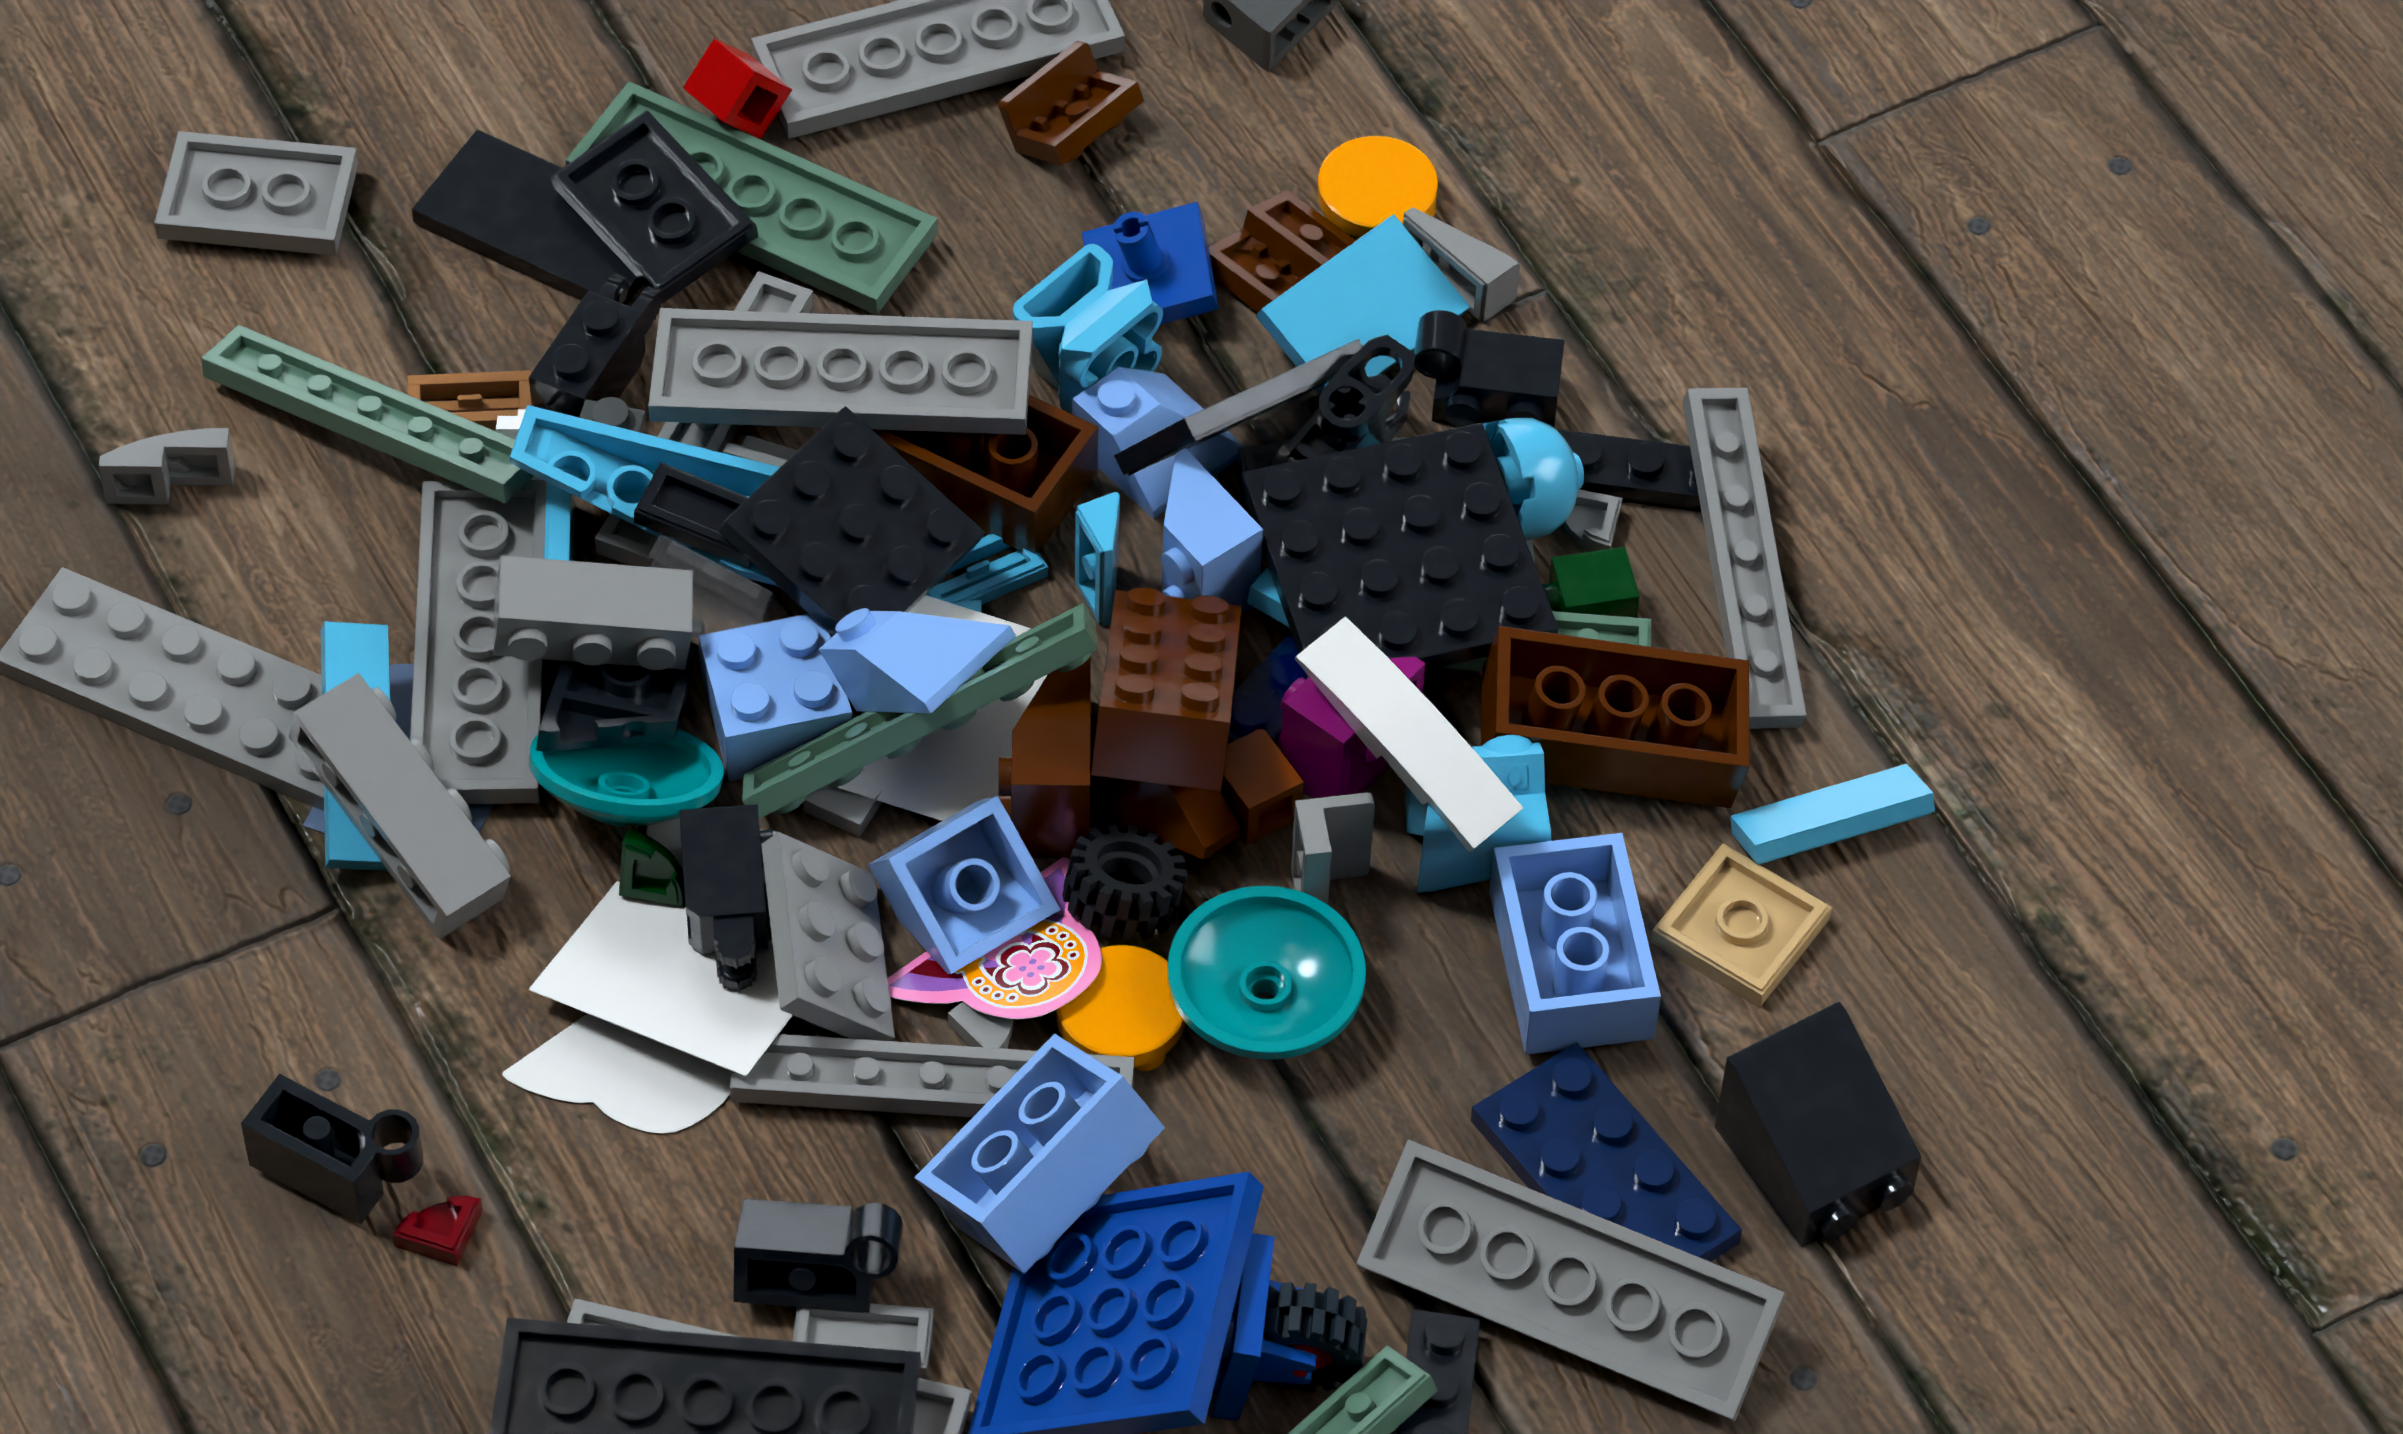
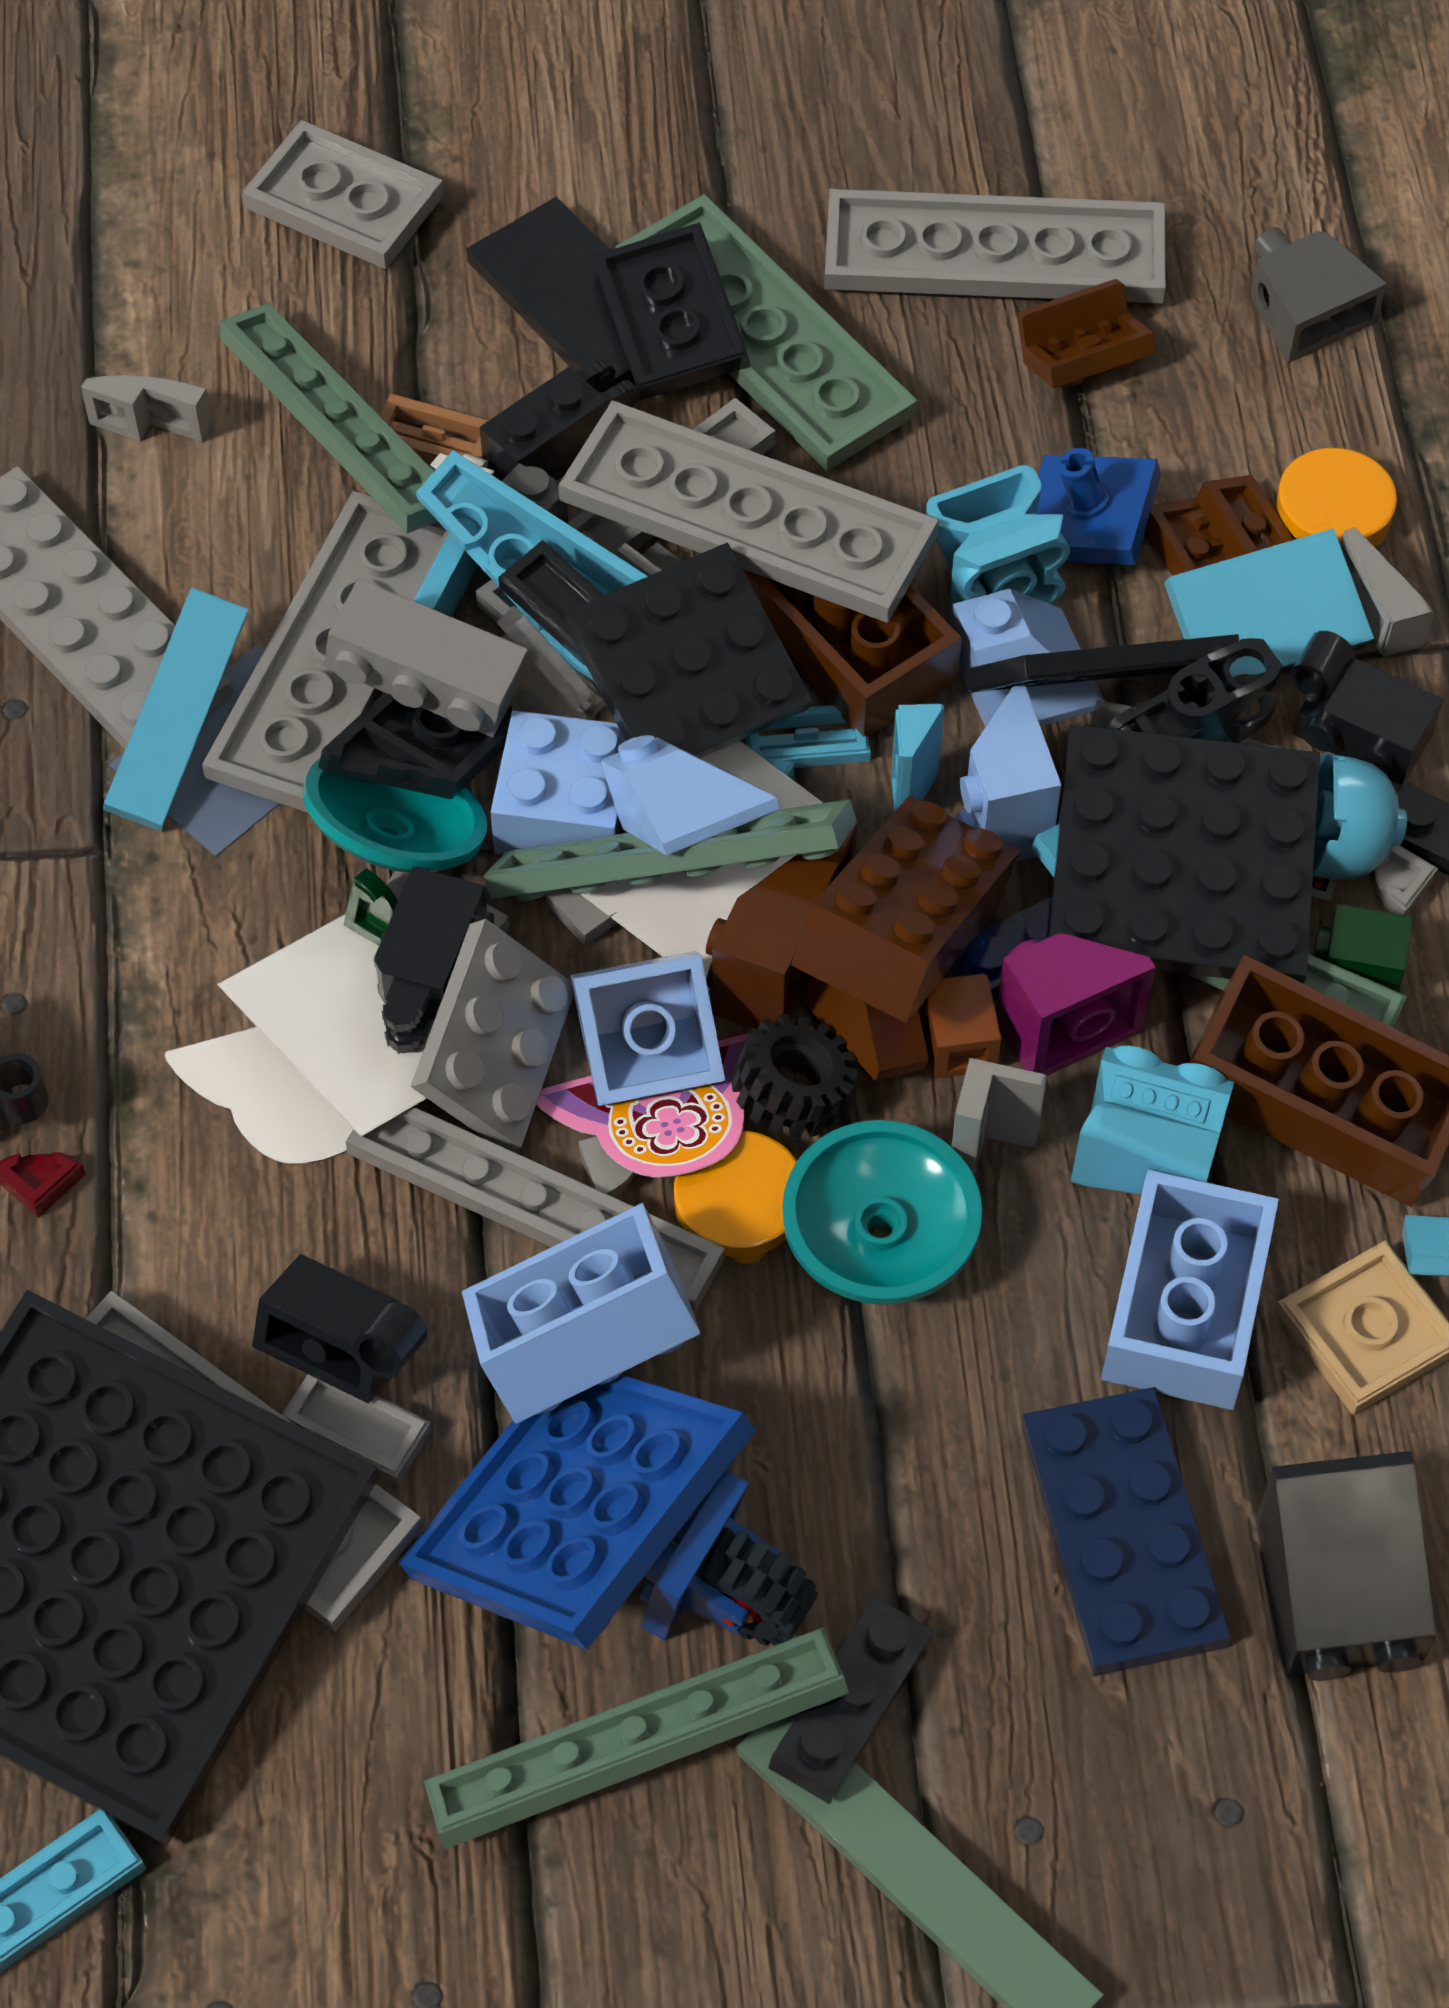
camera: 25 degrees right, 5 degrees up
(400, 804) = (180, 777): light grey brick -> none
(737, 88) = (793, 229): red brick -> none
(1408, 732) = (1102, 1031): white slope -> none
(1571, 1280) = (1038, 1630): light grey plate -> none

